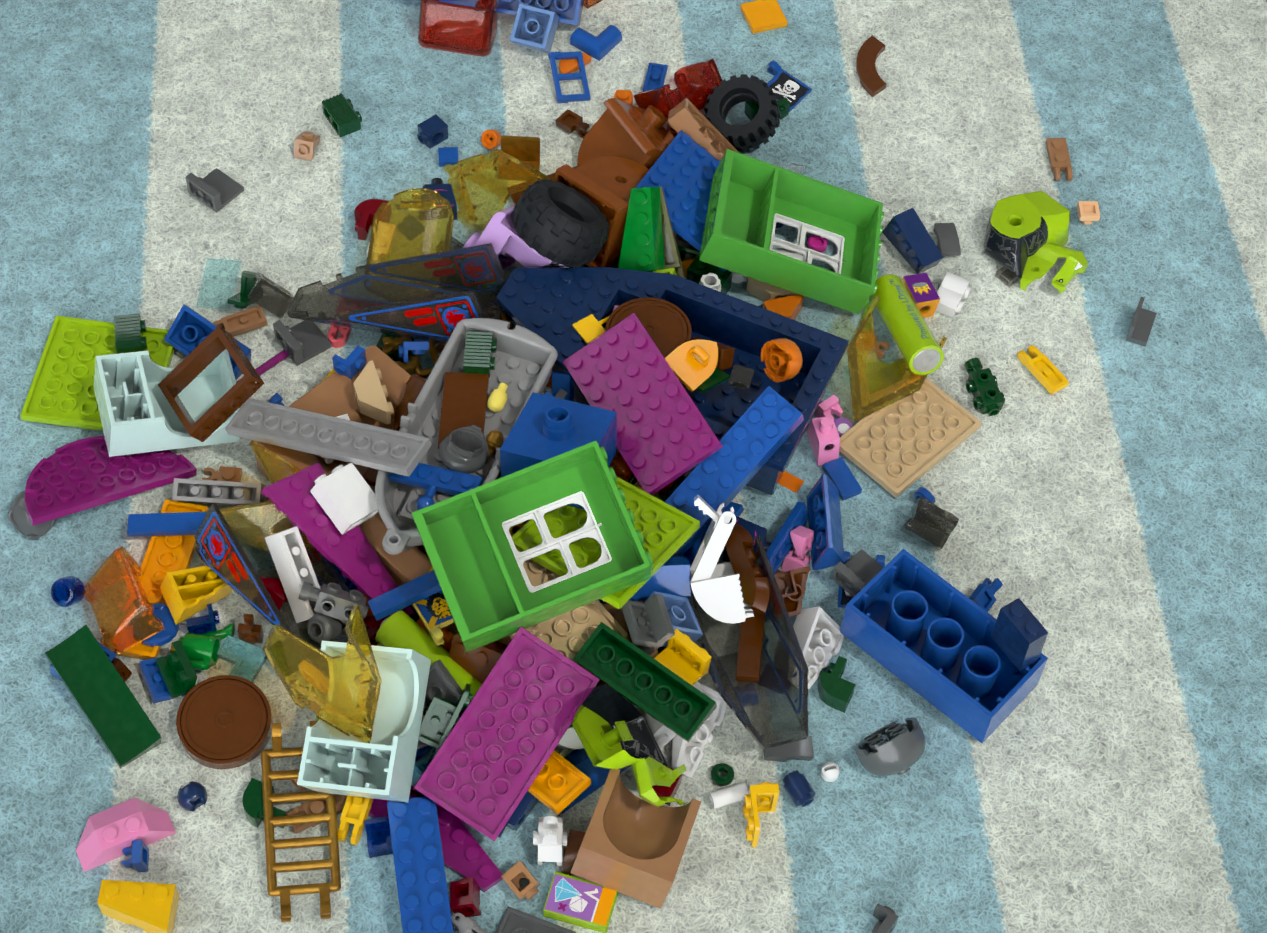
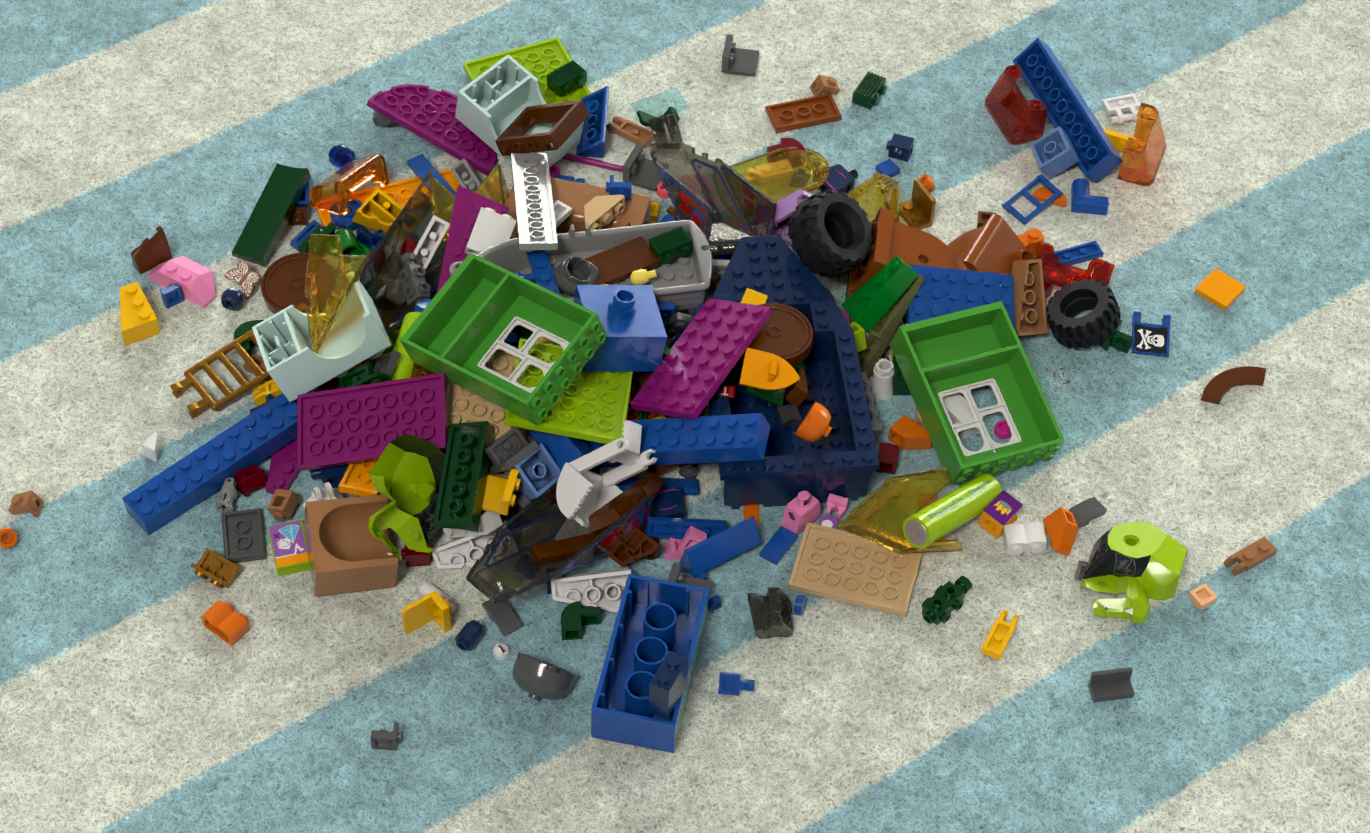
camera: 60 degrees right, 5 degrees down
(61, 846) = (151, 252): none -> reddish brown slope
(171, 768) = (244, 277): none -> medium nougat animal
(324, 180) = (803, 113): none -> dark orange tile
(722, 780) = (451, 589): dark green plate -> none
(913, 241) = (1055, 485): dark blue wedge -> none
(961, 263) = (1061, 529): none -> orange slope

